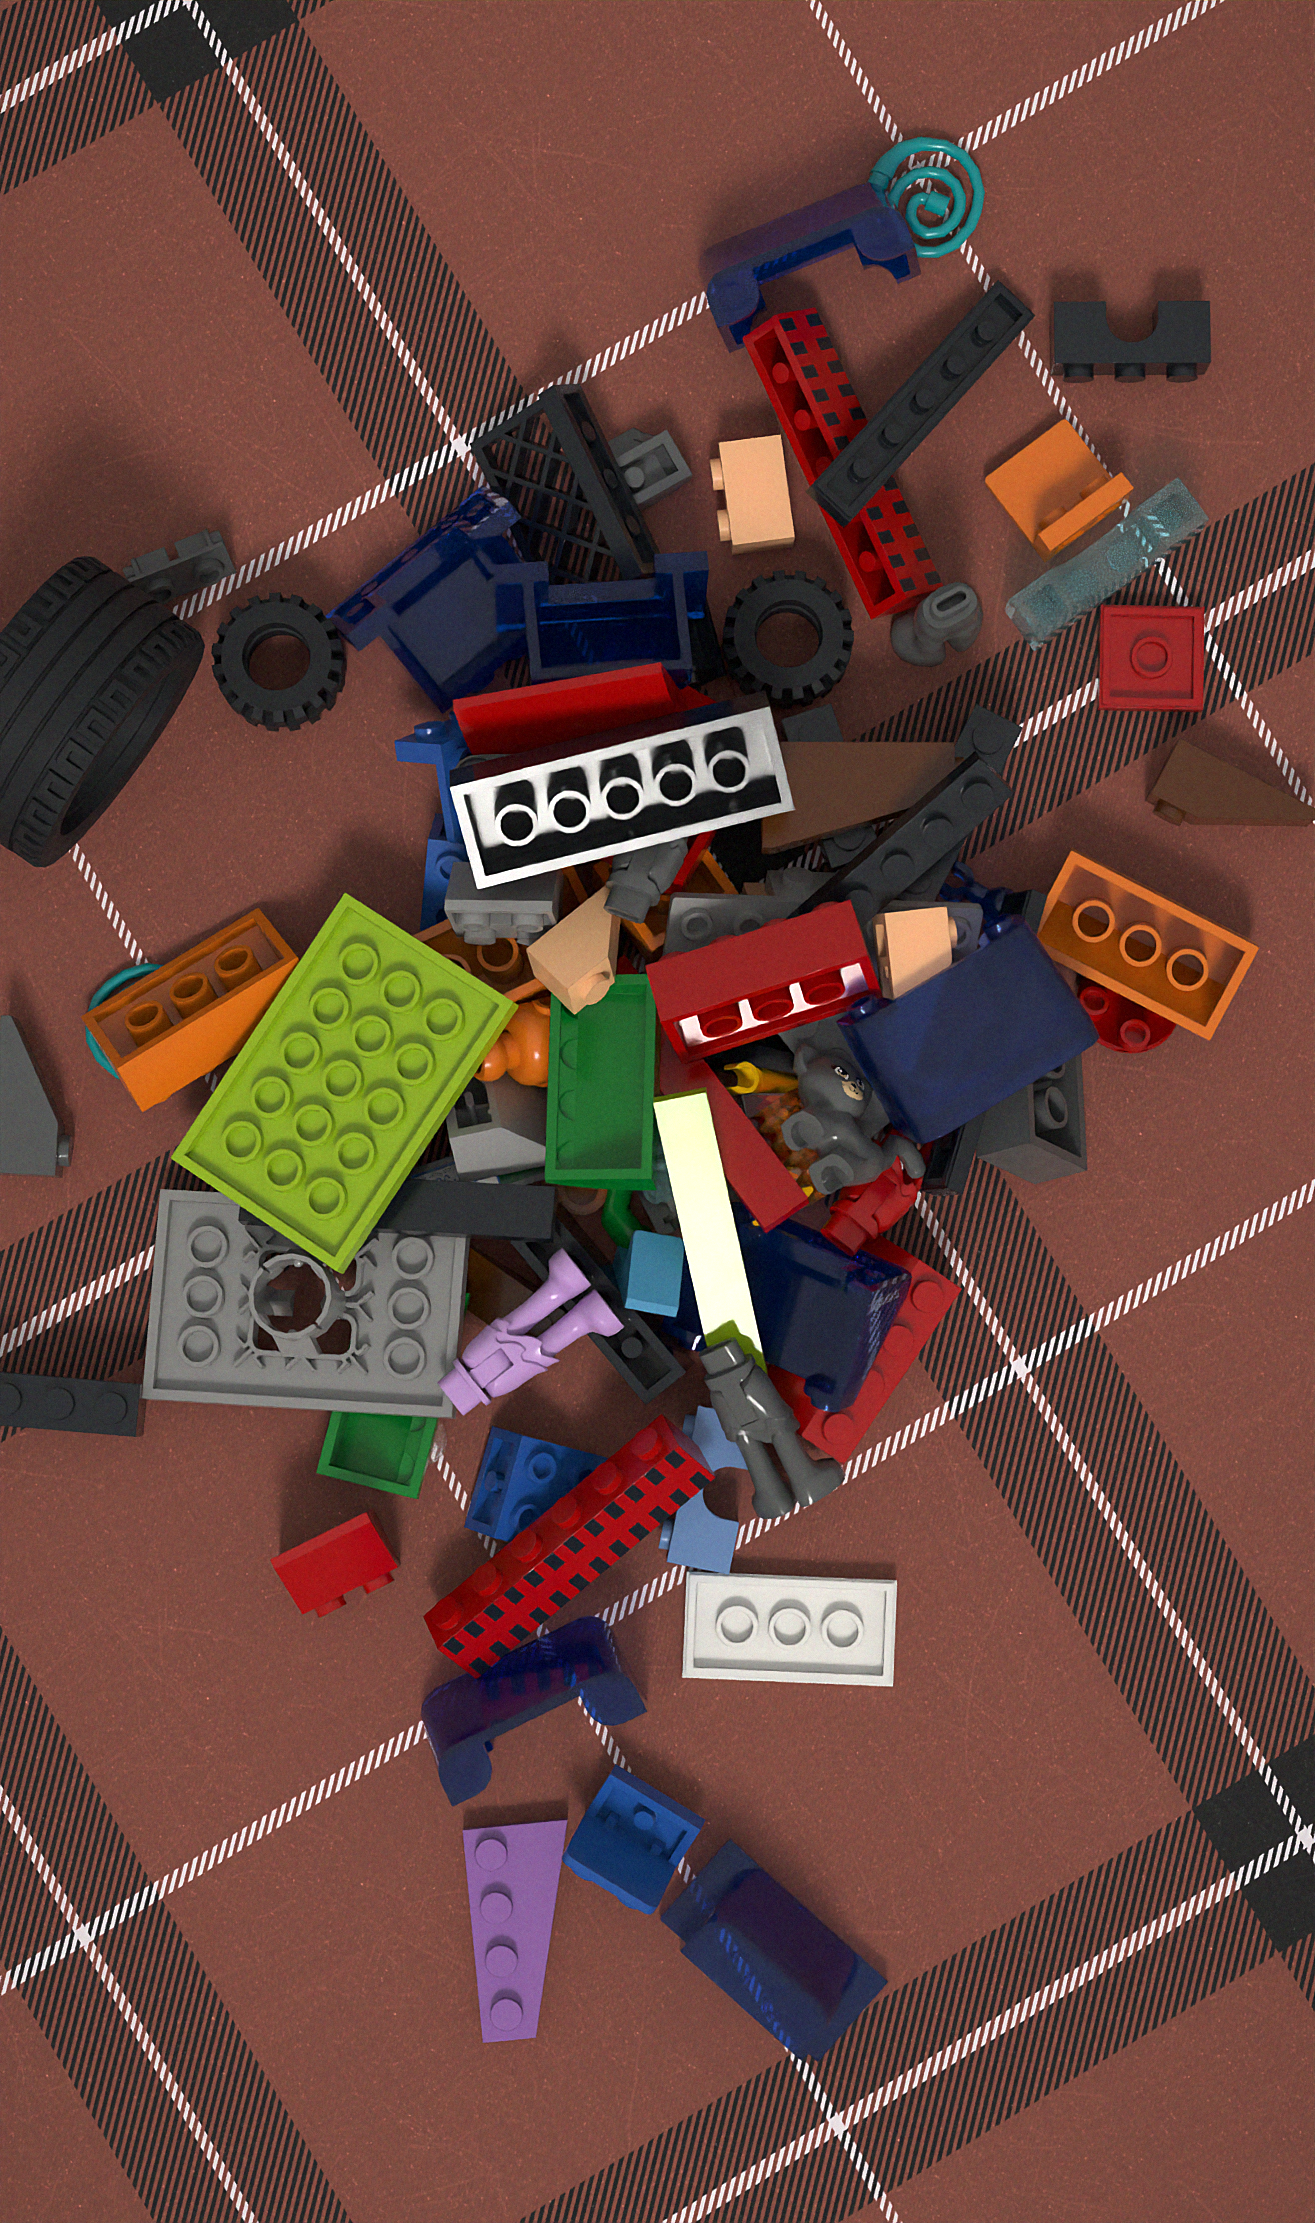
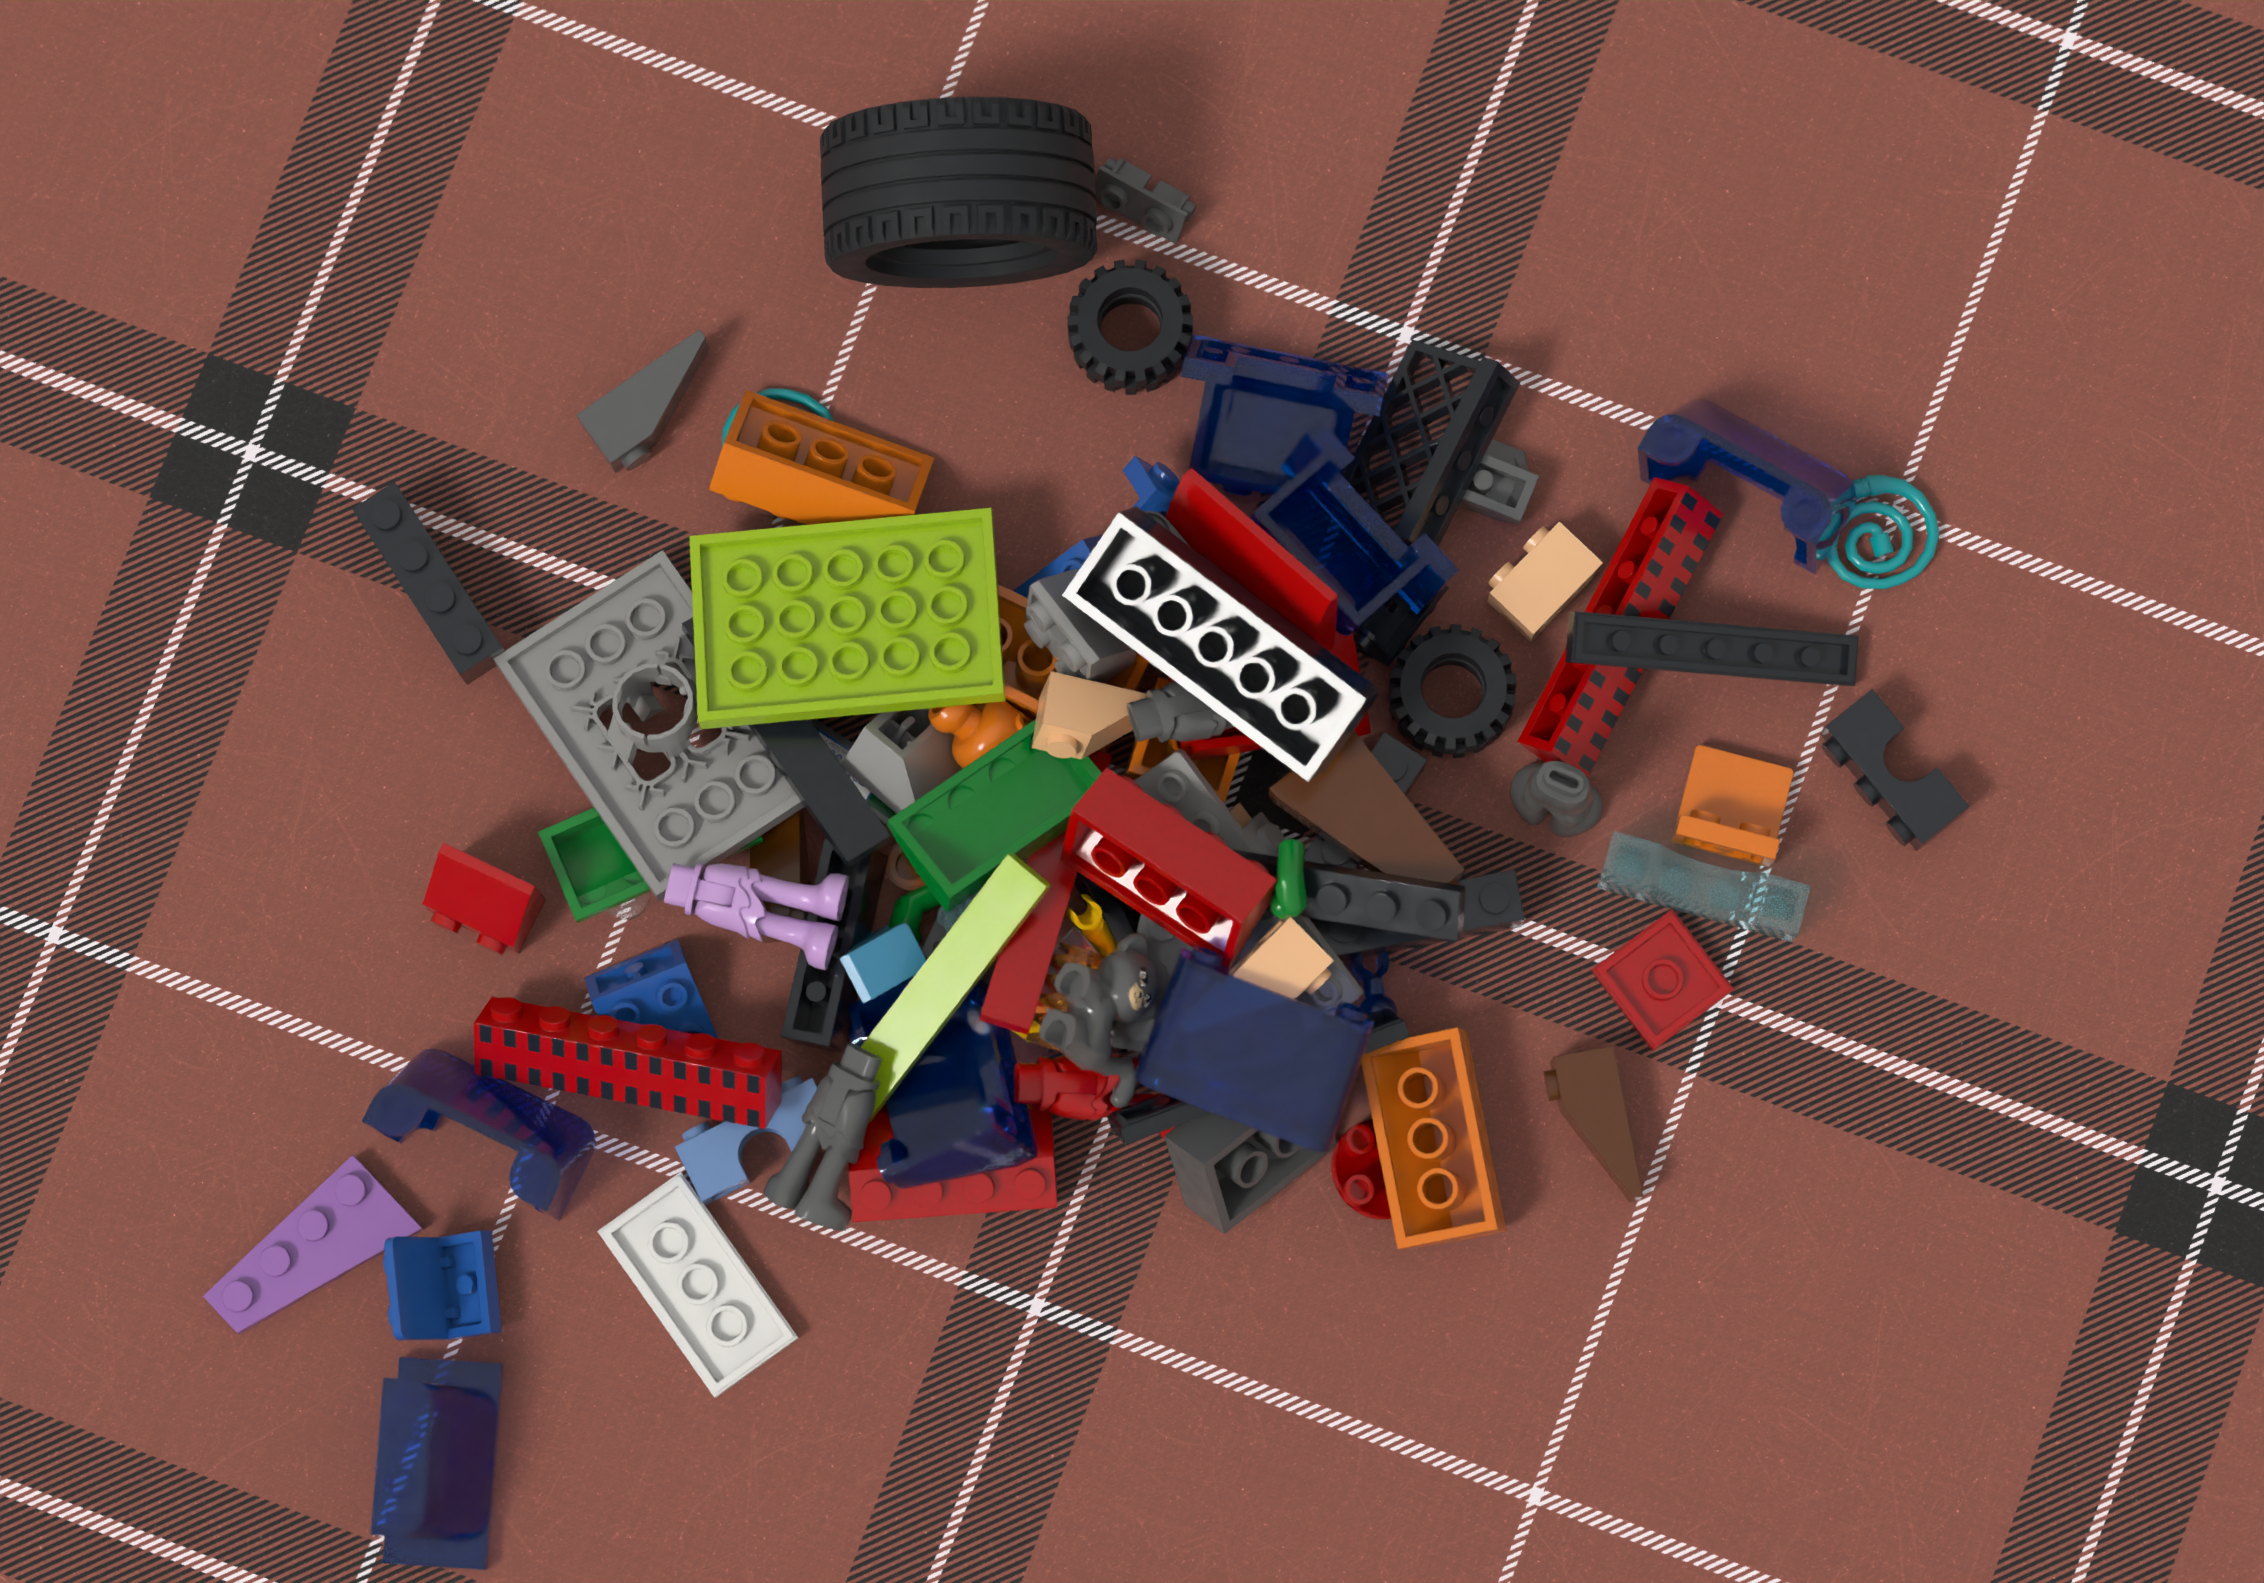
camera: 55 degrees right, 5 degrees down
(869, 898) = (1290, 884): none -> green arm

